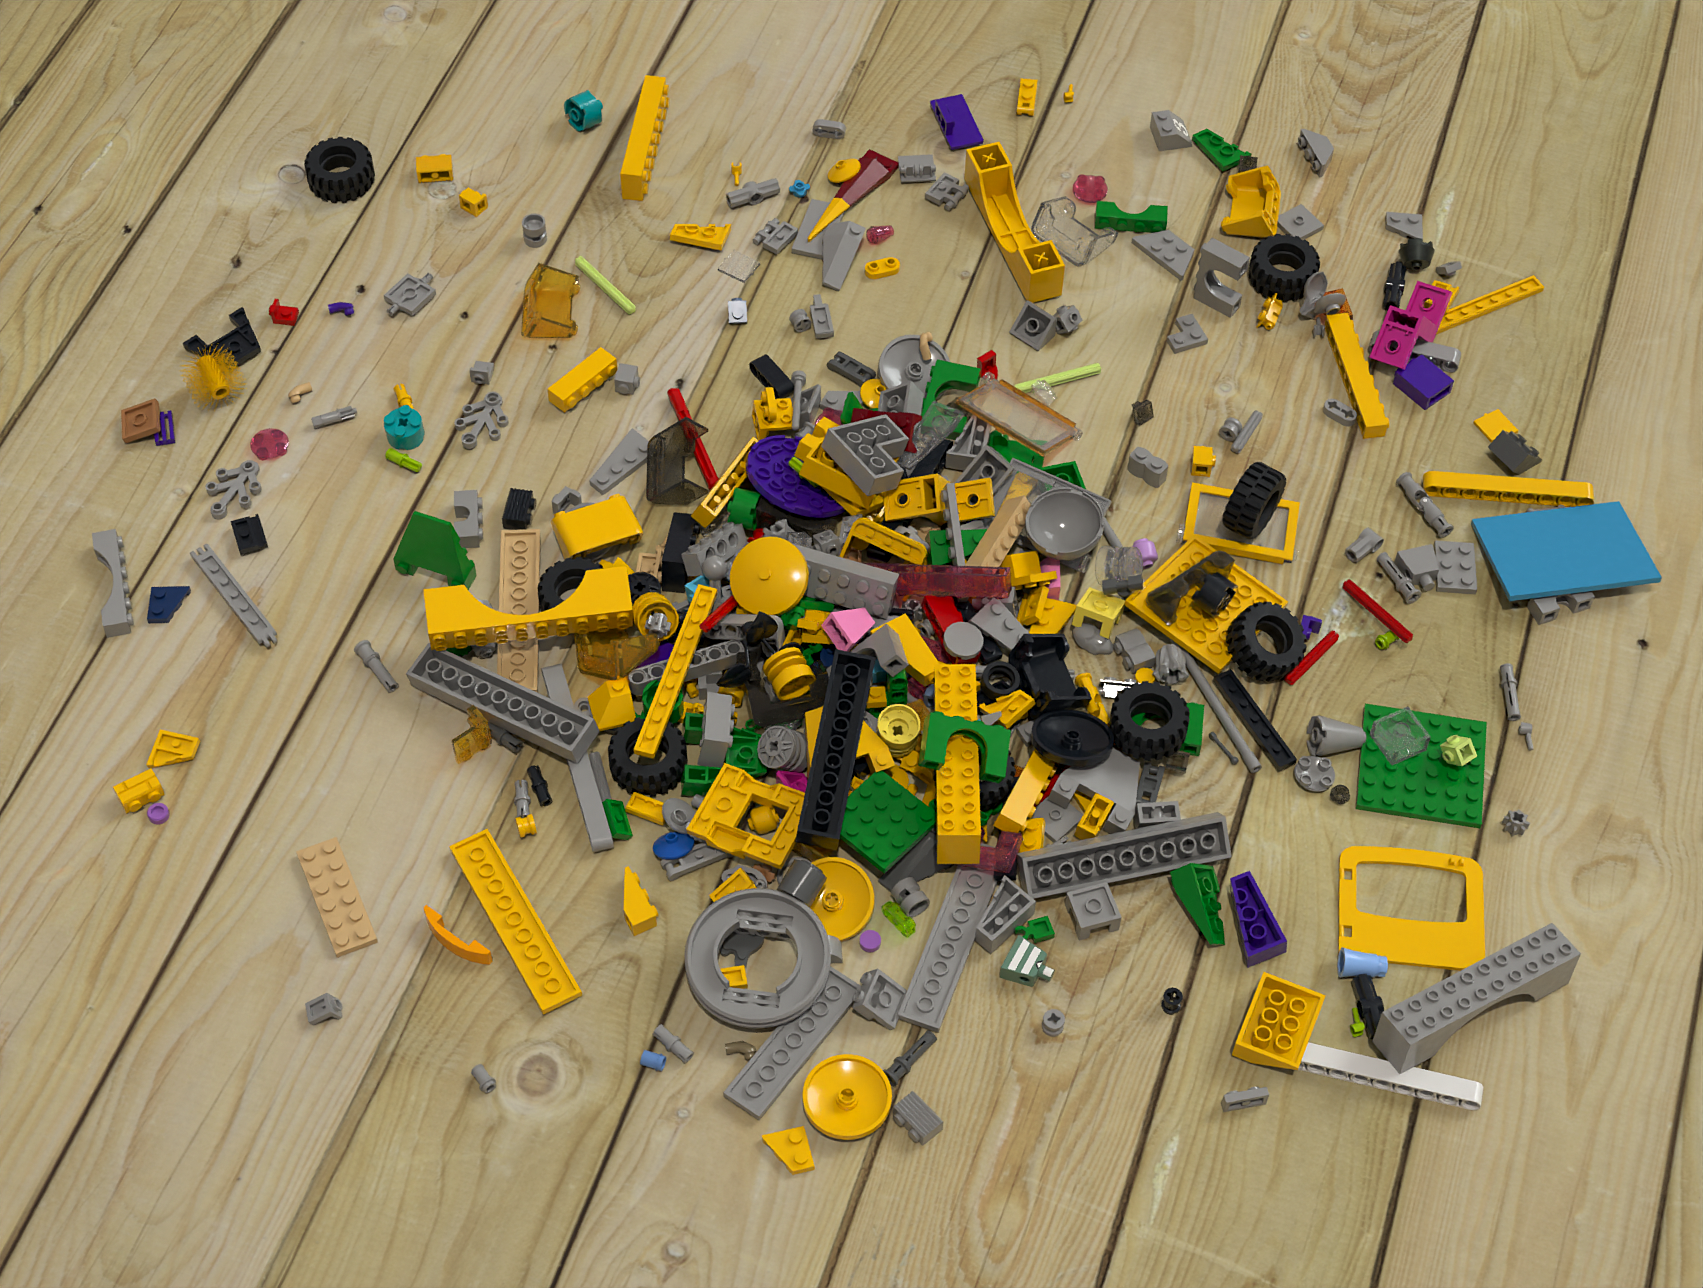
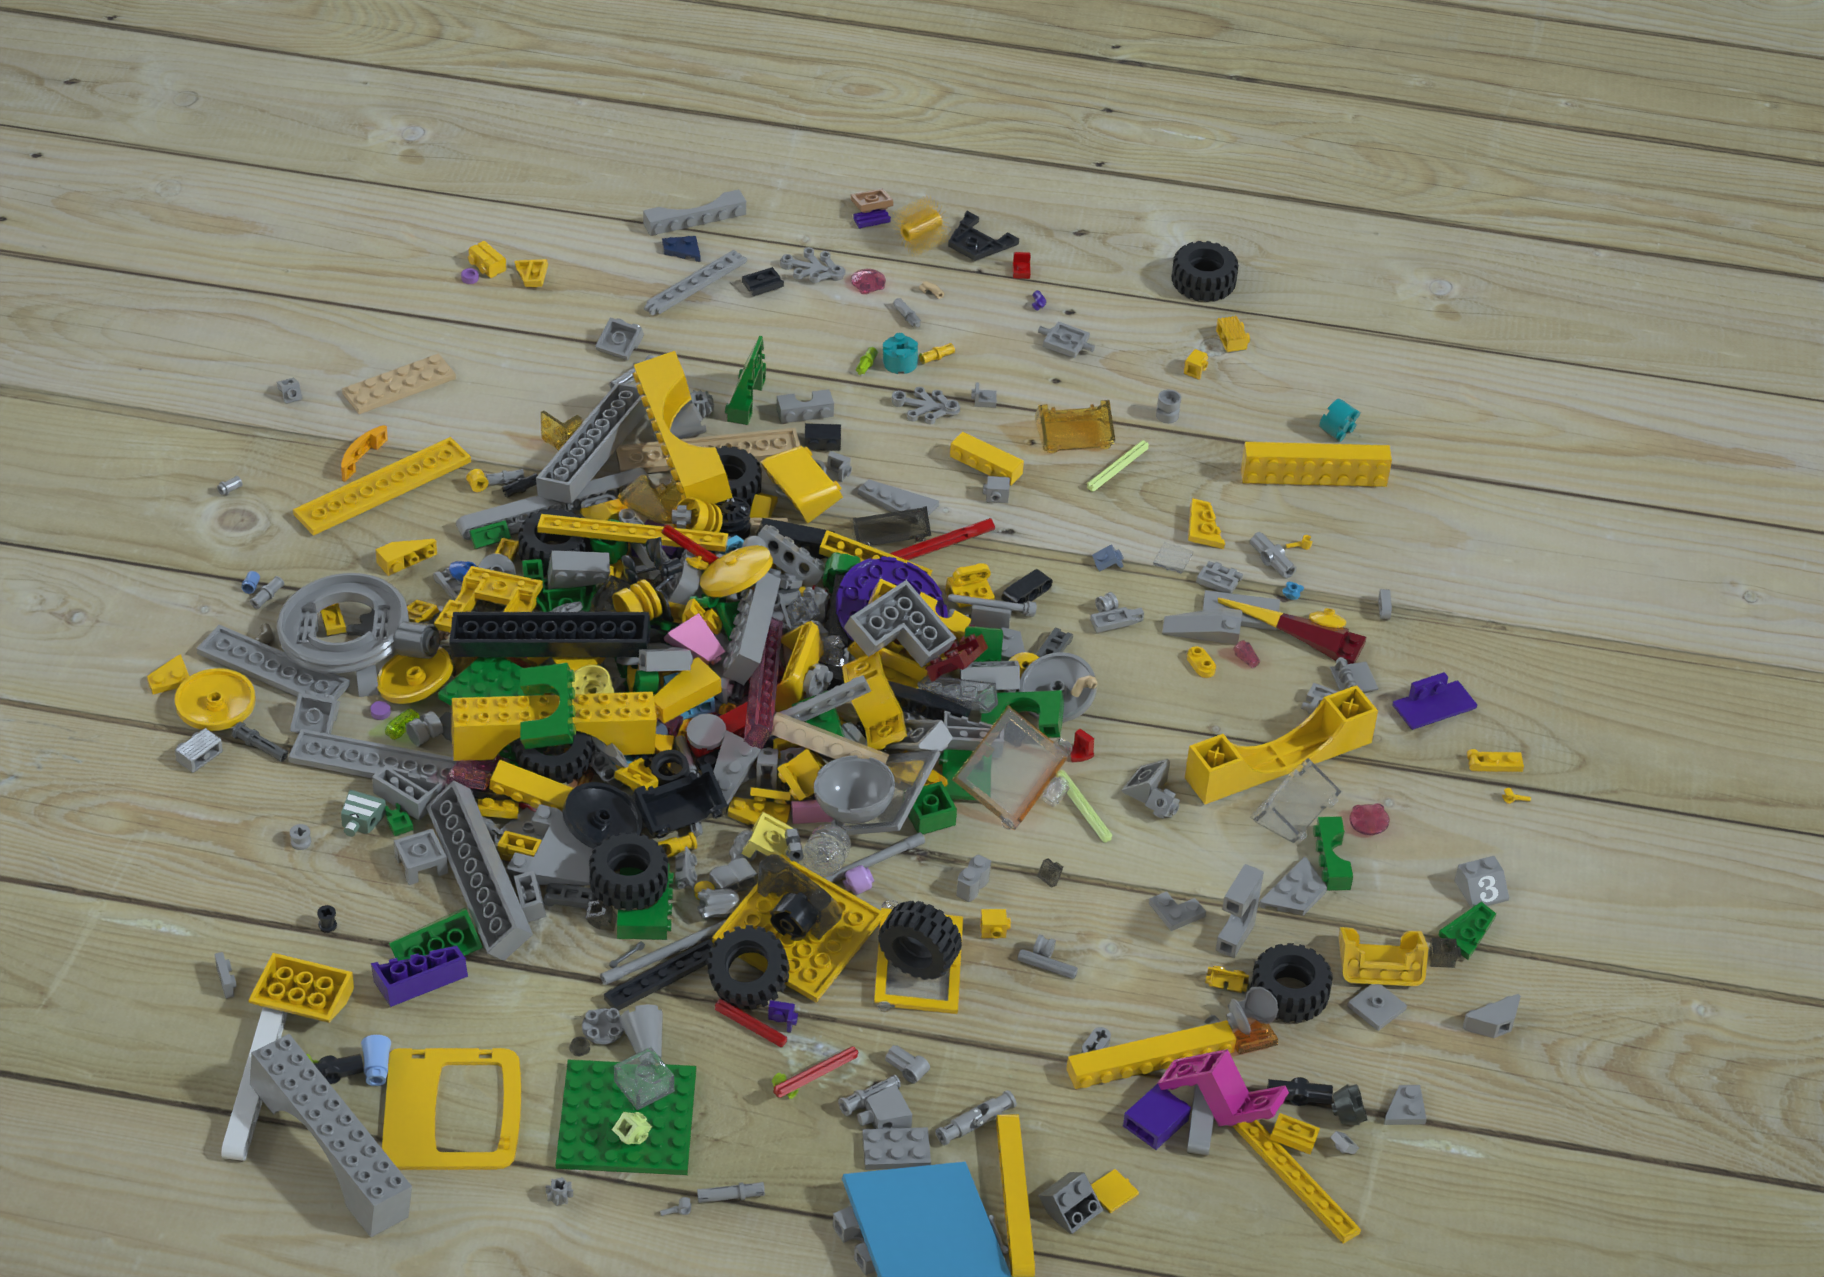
camera: 80 degrees right, 10 degrees down
(317, 671) = (619, 338): none -> light grey plate
(738, 614) = (697, 563): none -> yellow plant

